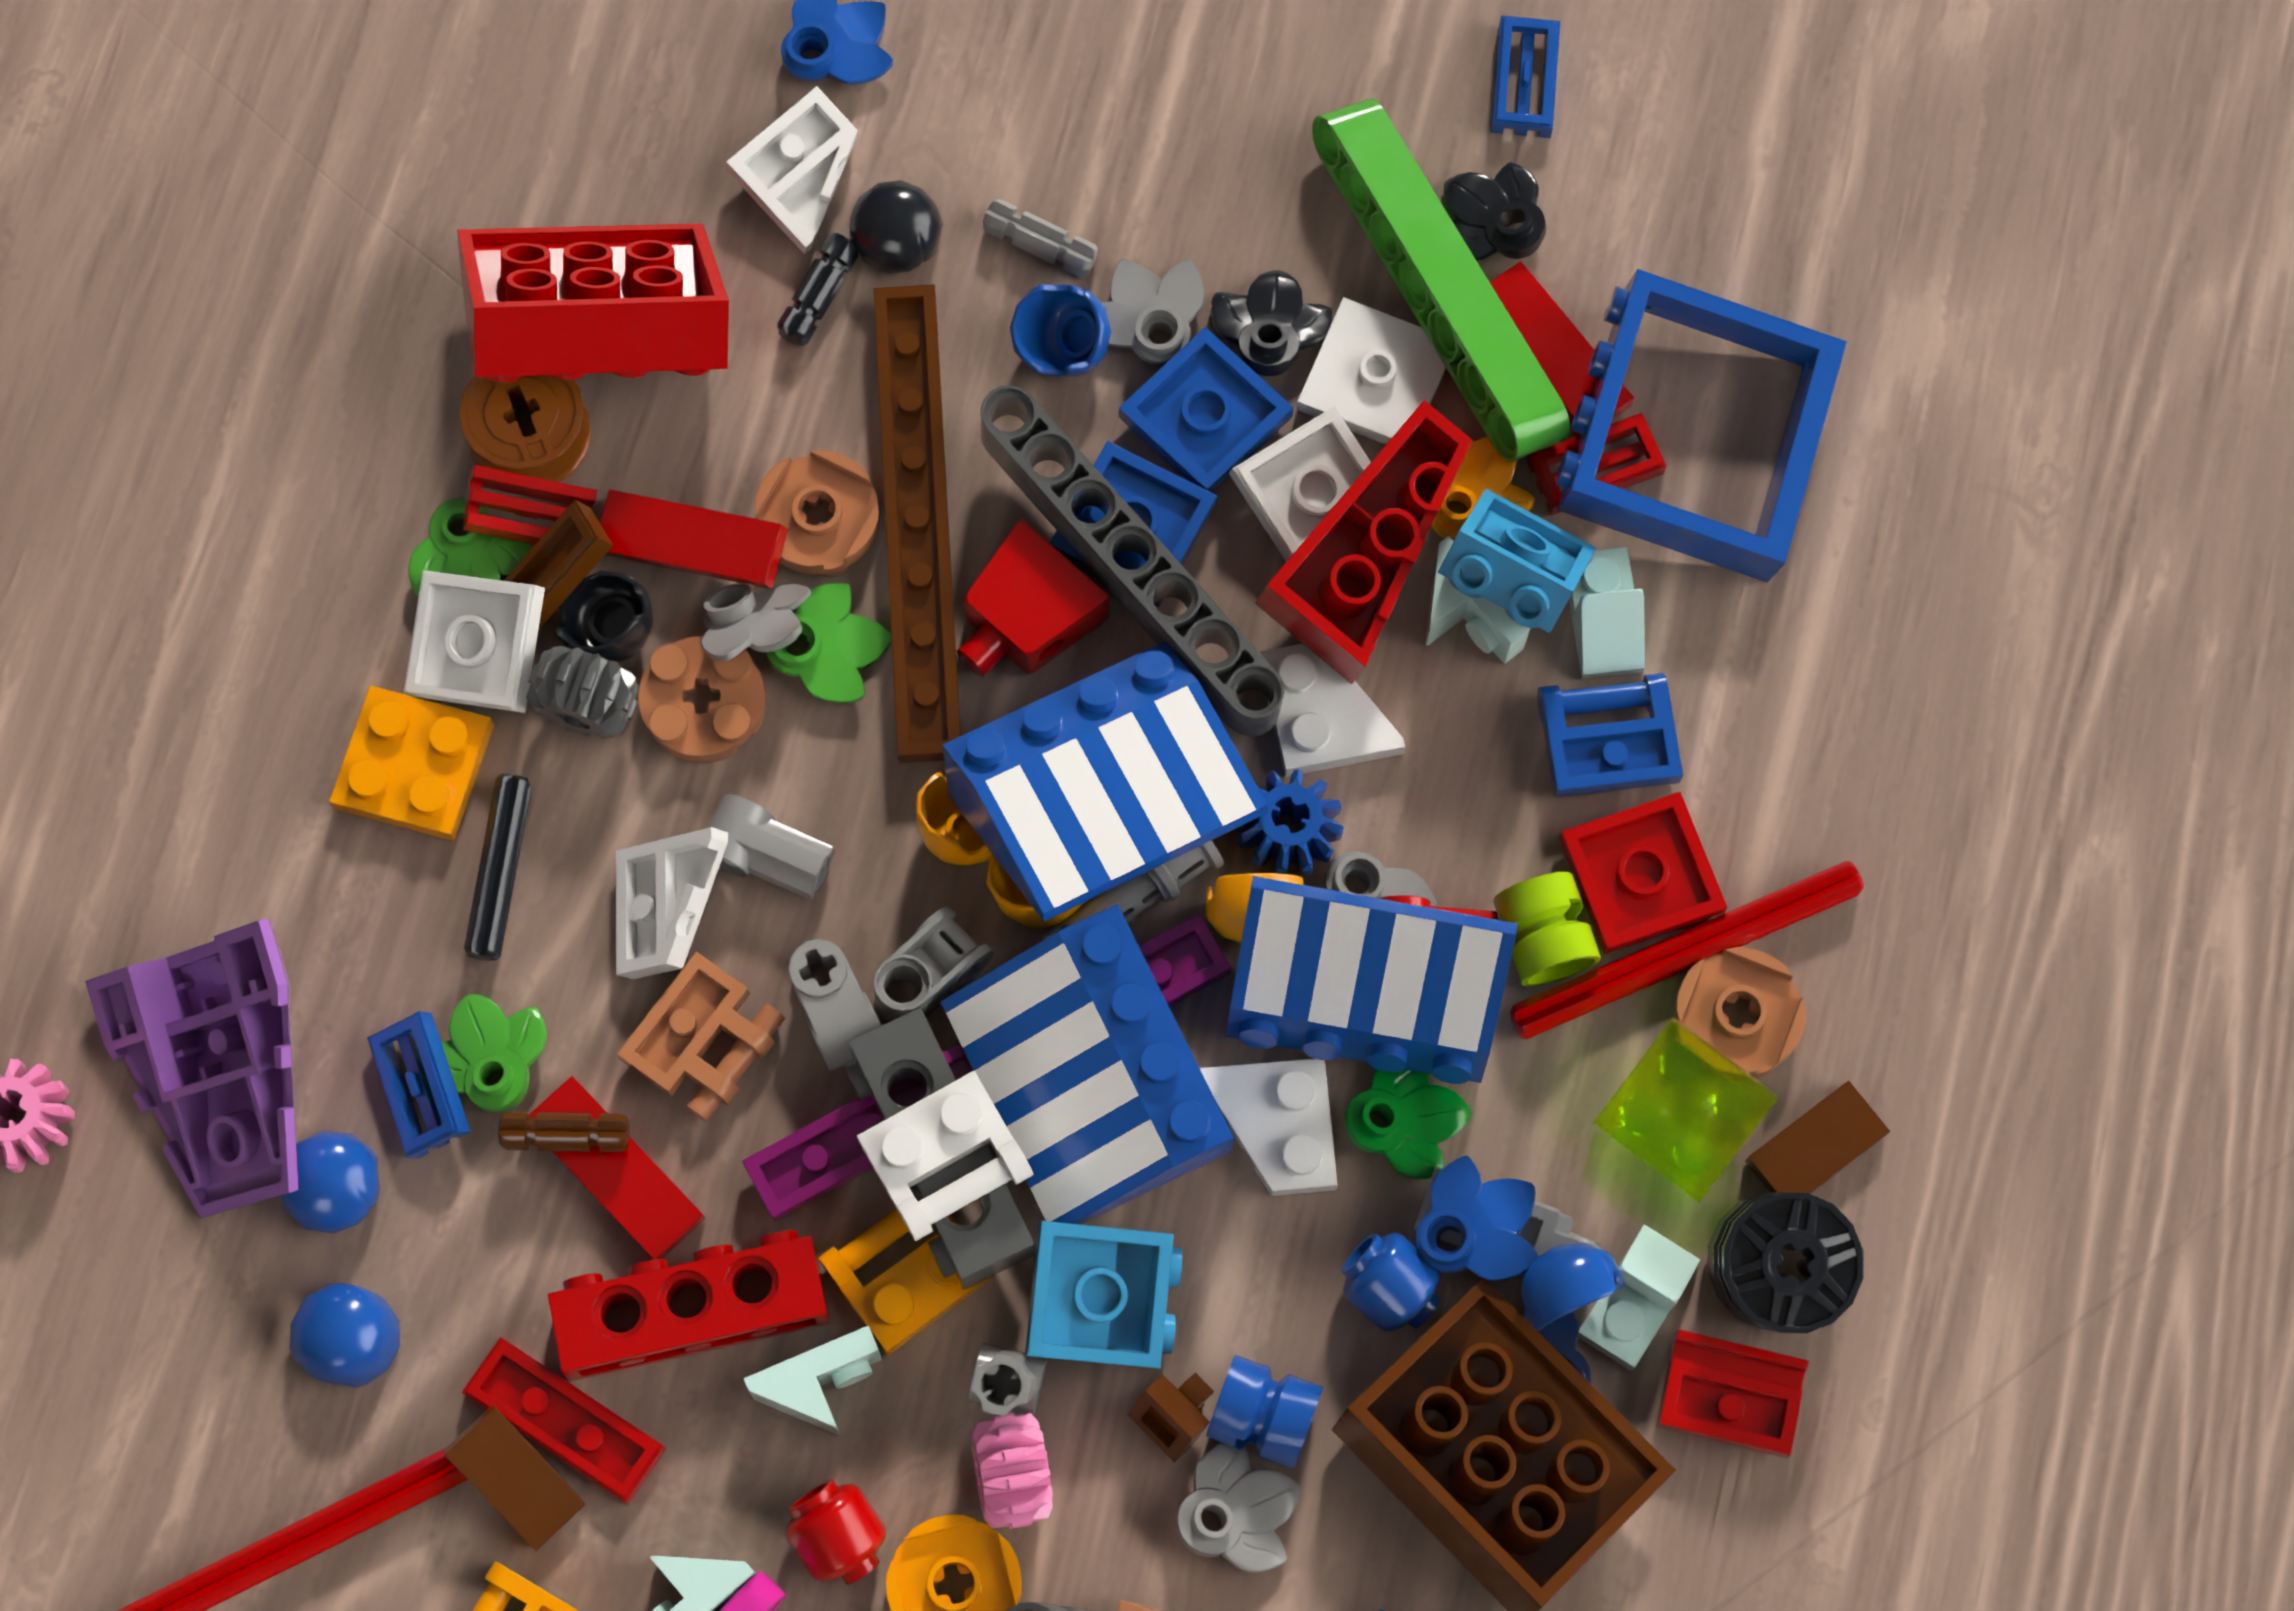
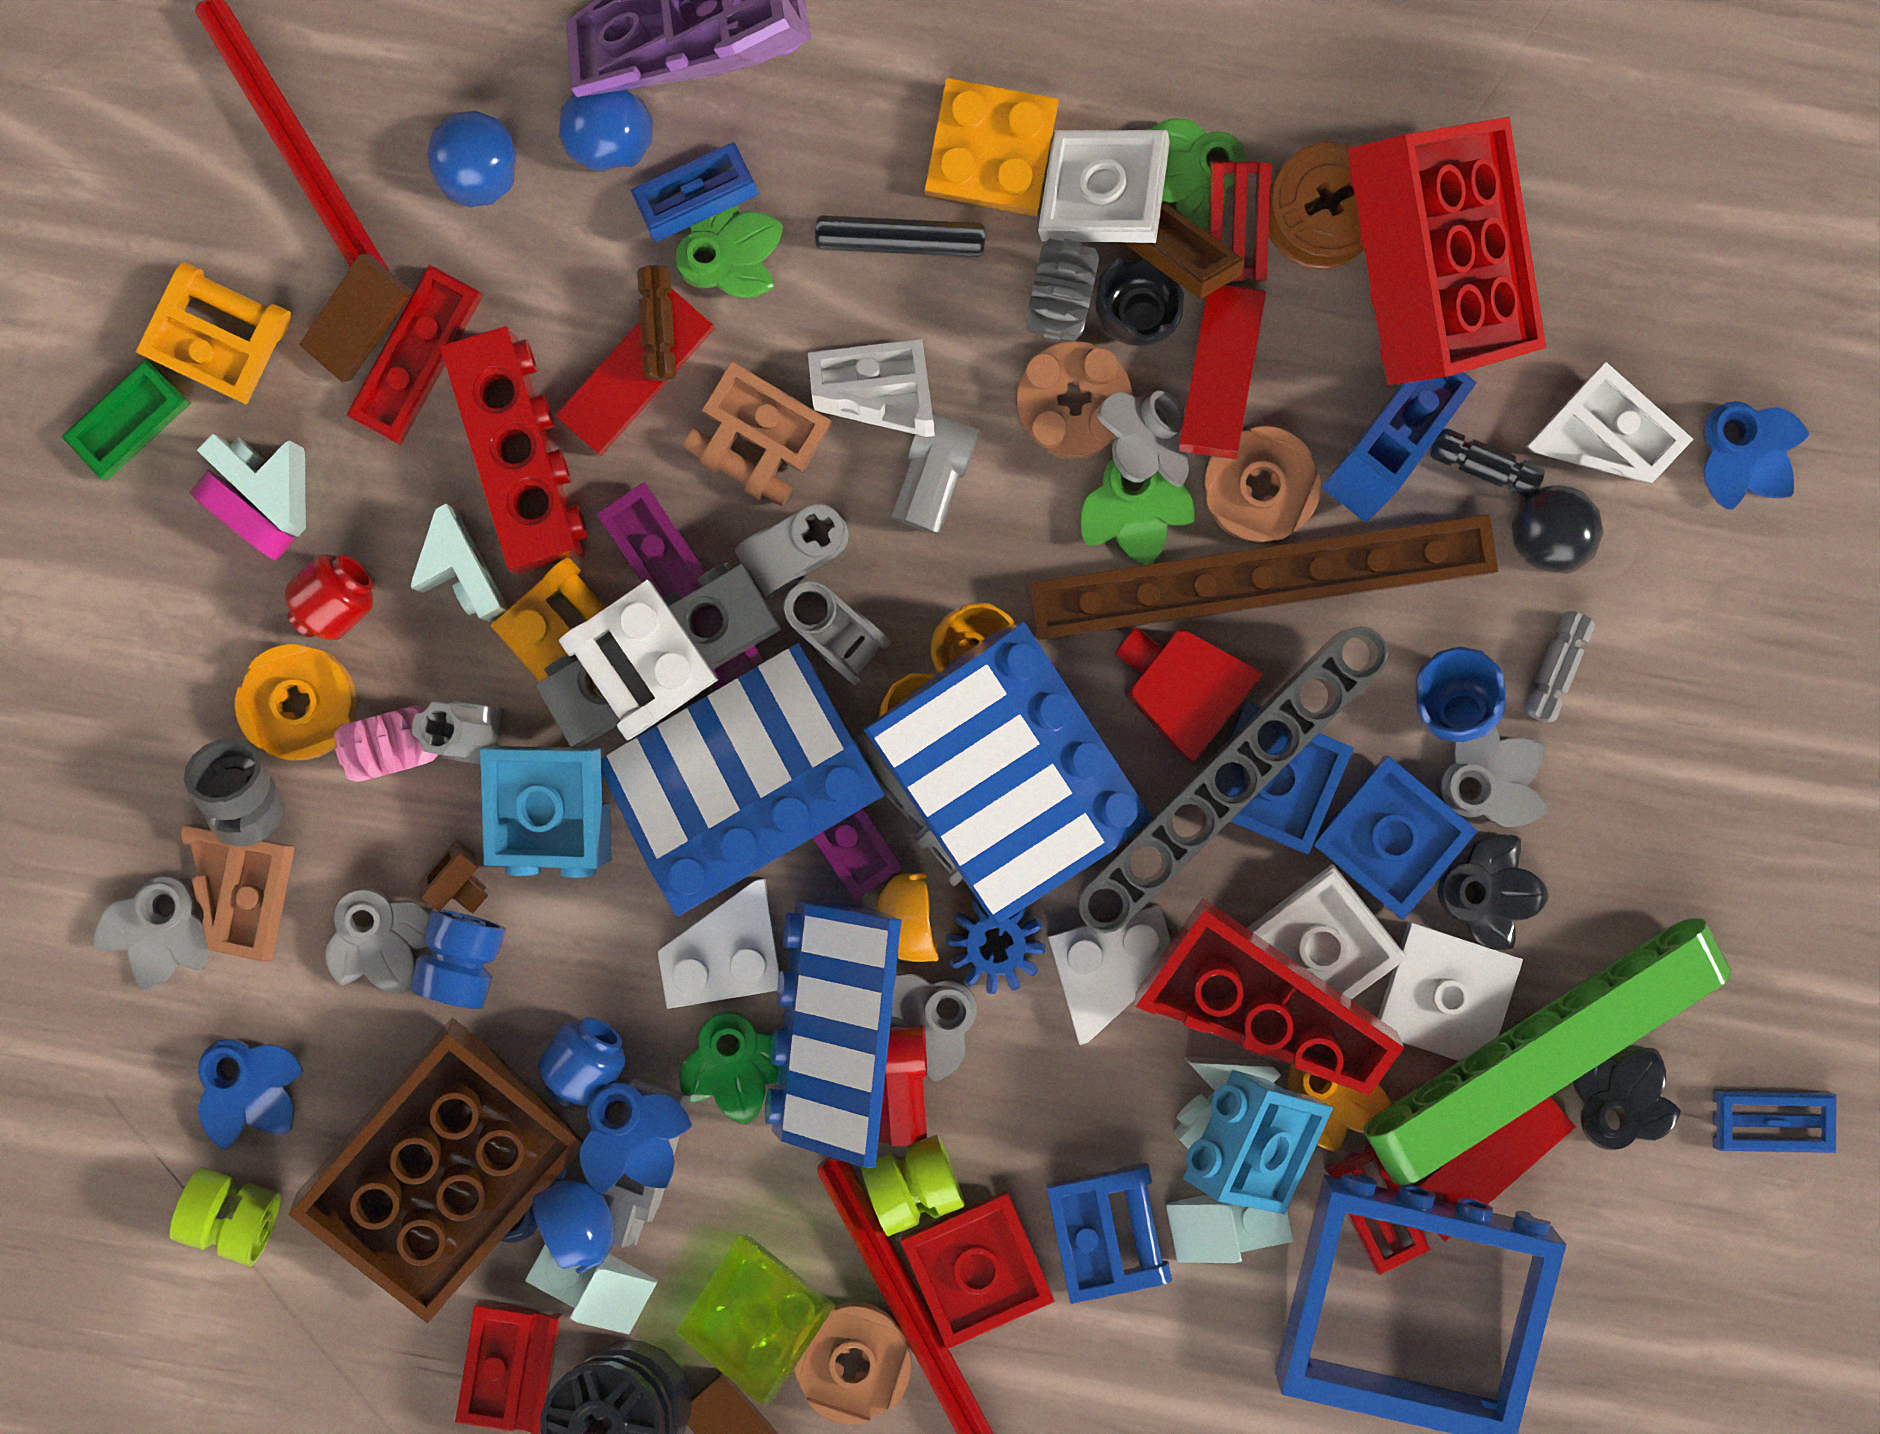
camera: 90 degrees right, 15 degrees up
(791, 376) = (1395, 443): none -> blue slope

